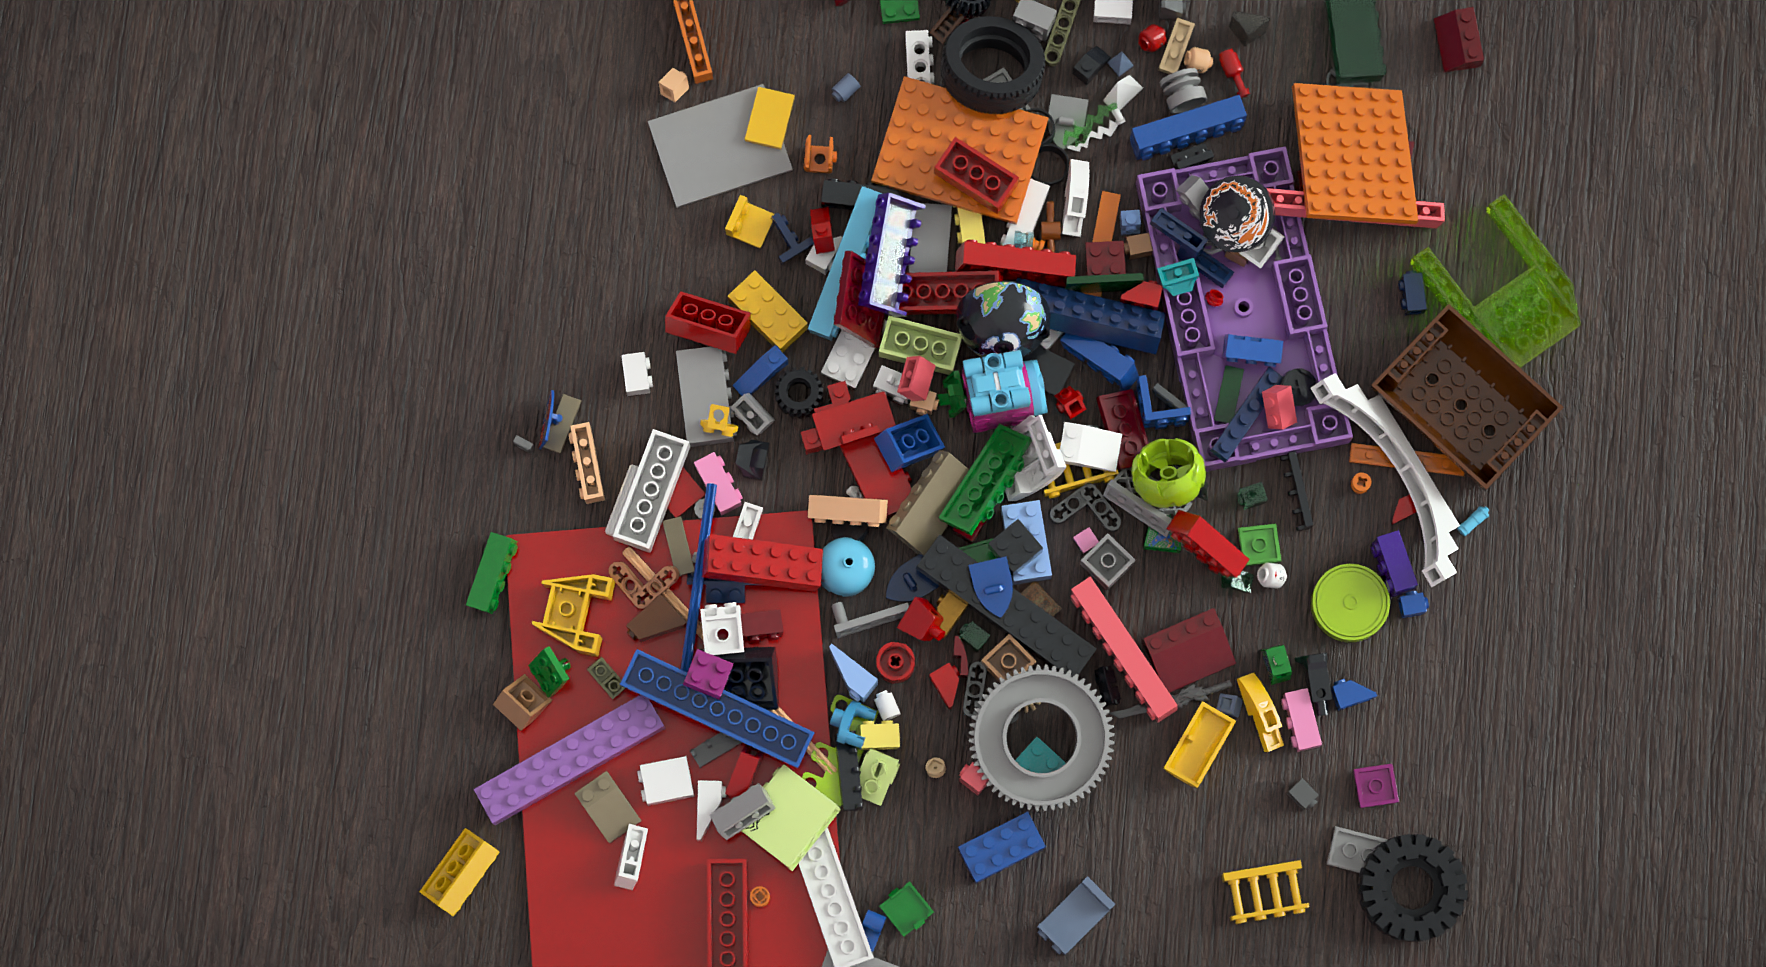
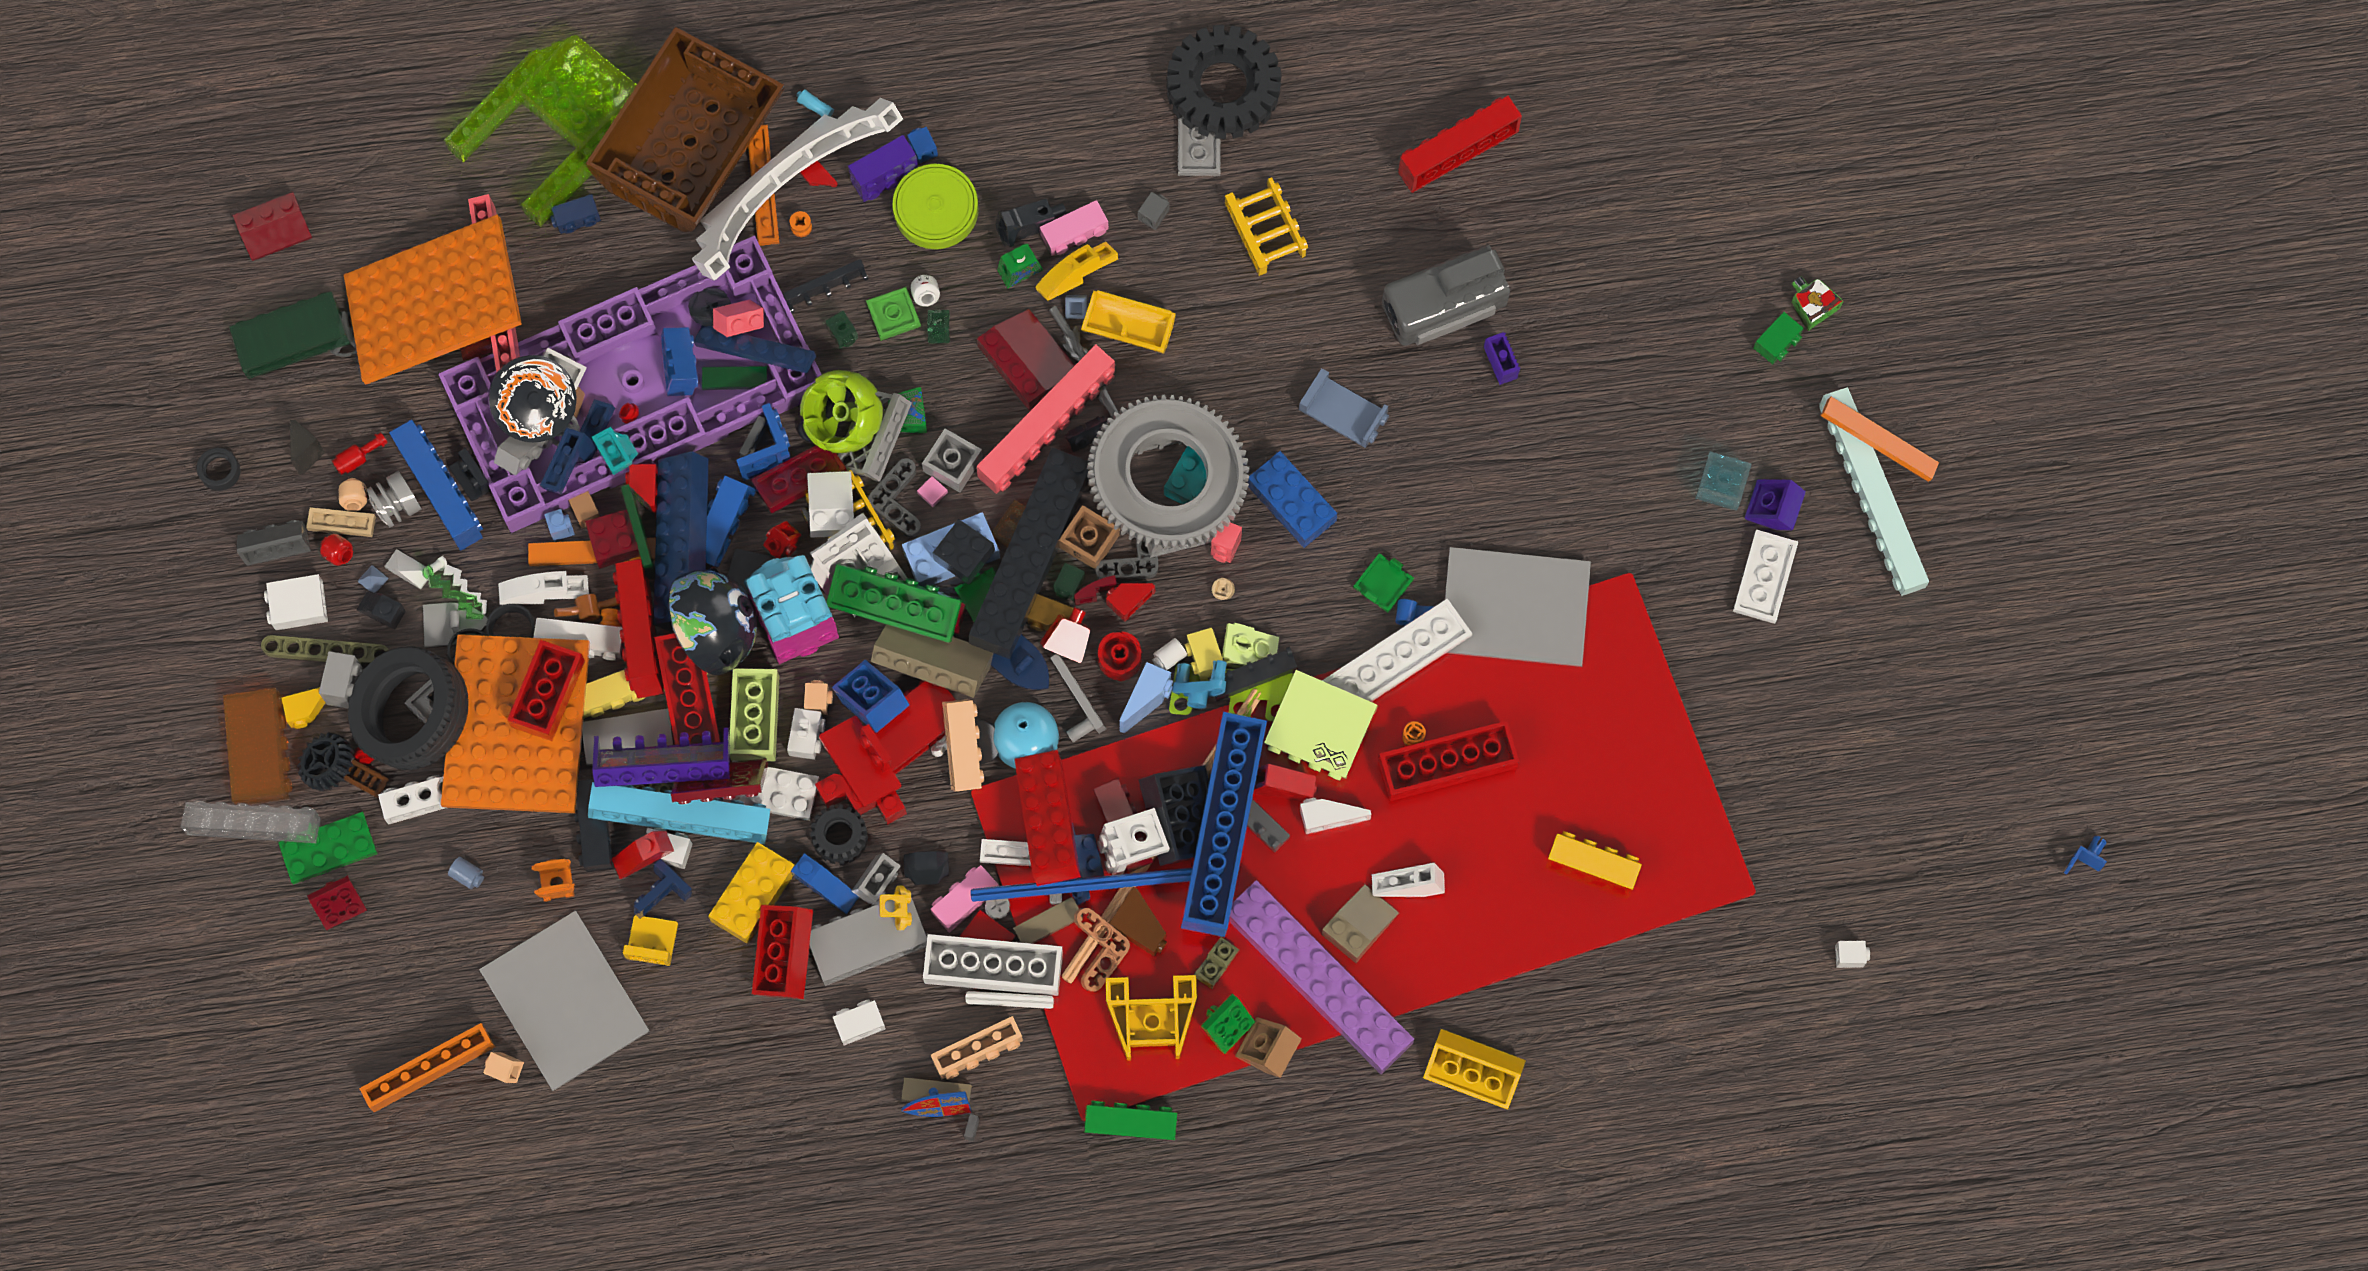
camera: 105 degrees left, 5 degrees down
(666, 781) = (1315, 866): white brick -> none
(708, 674) = (1190, 837): magenta plate -> none
(742, 811) = (1328, 770): light grey brick -> none
(769, 118) = (520, 950): yellow tile -> none
(916, 378) = (796, 703): coral brick -> none
(954, 395) = (802, 664): green piece -> none
(993, 584) = (1011, 563): blue shield -> none
(1019, 239) = (608, 627): clear light blue wheel -> none
(1207, 544) = (911, 355): red brick -> none
(1350, 694) = (1034, 185): blue slope -> none
(1375, 786) = (1125, 141): magenta plate -> none

